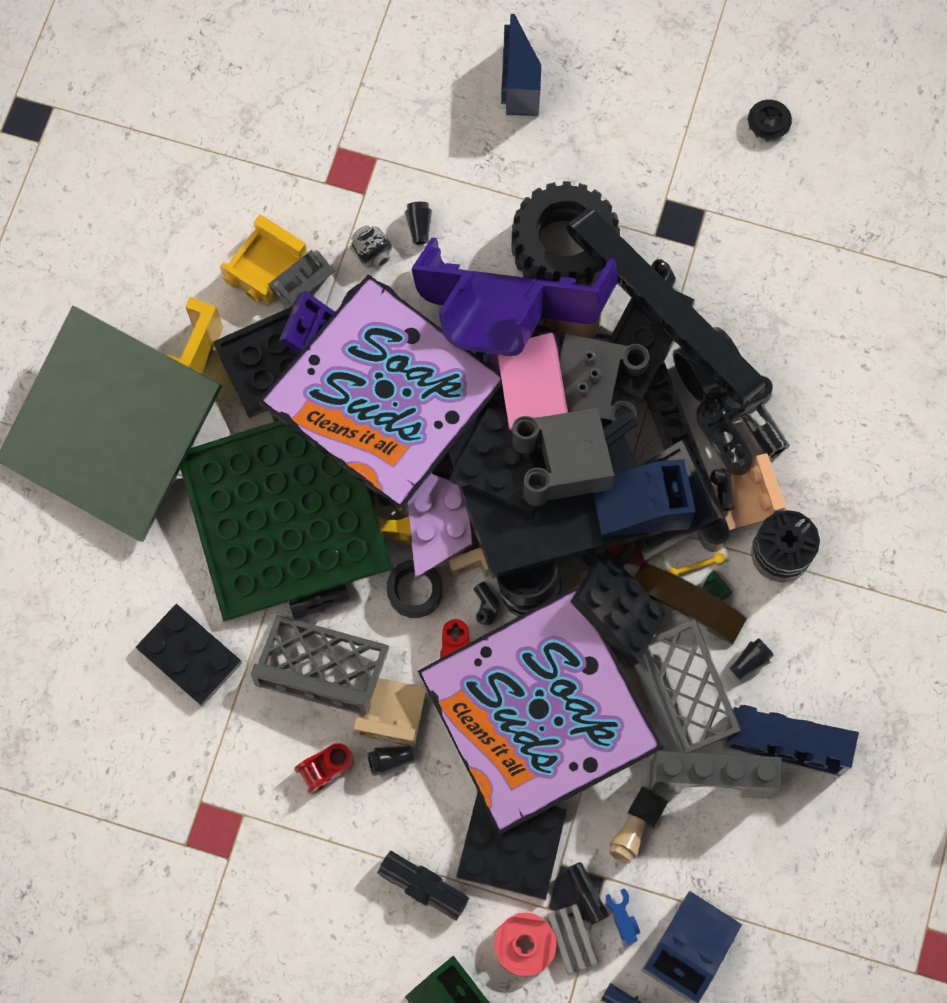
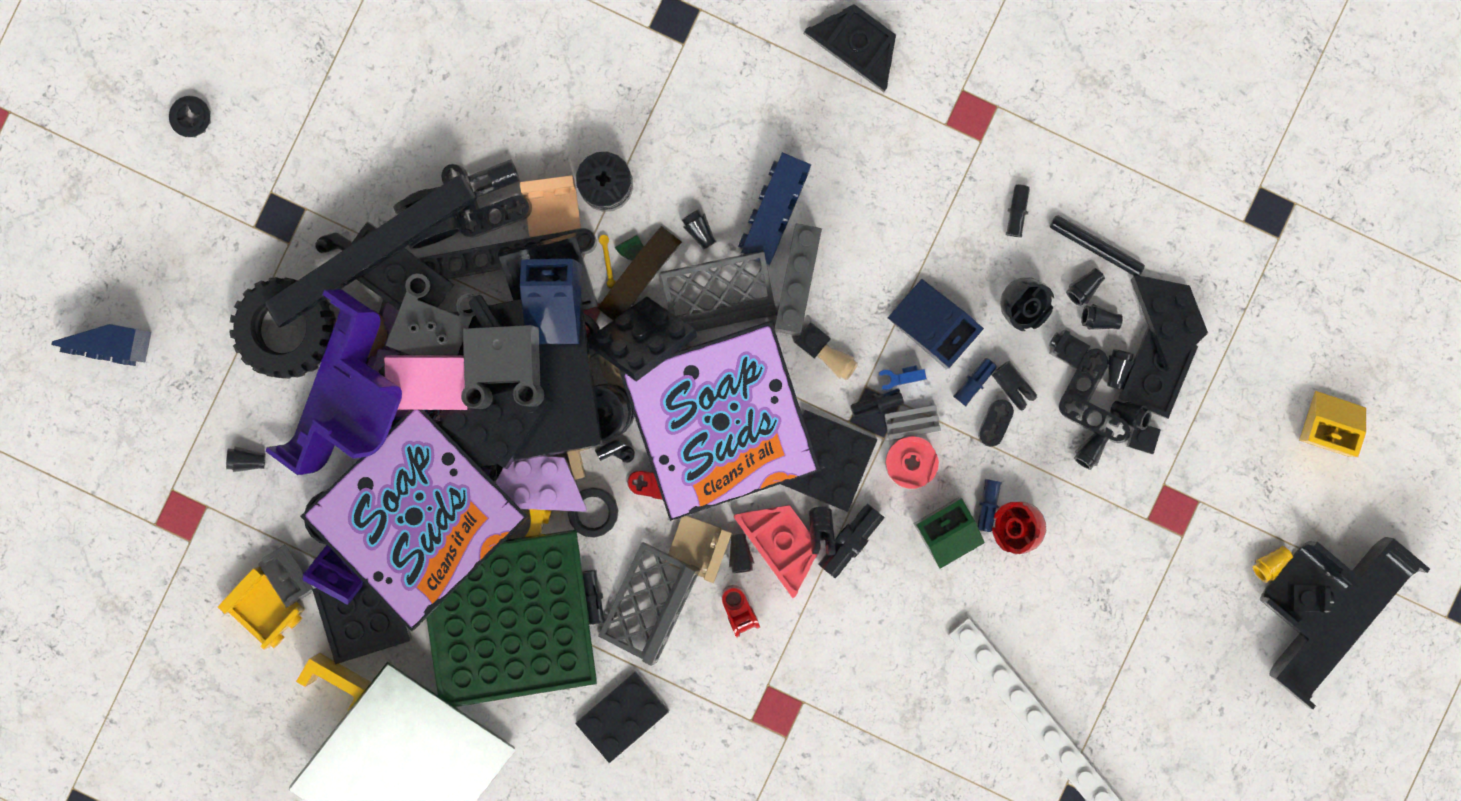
camera: 75 degrees left, 15 degrees up
(371, 246) = (262, 507): head -> none
(409, 805) = (781, 542): none -> coral wing
(432, 847) = (821, 529): none -> black hinge
(723, 480) = (536, 225): black arm -> none

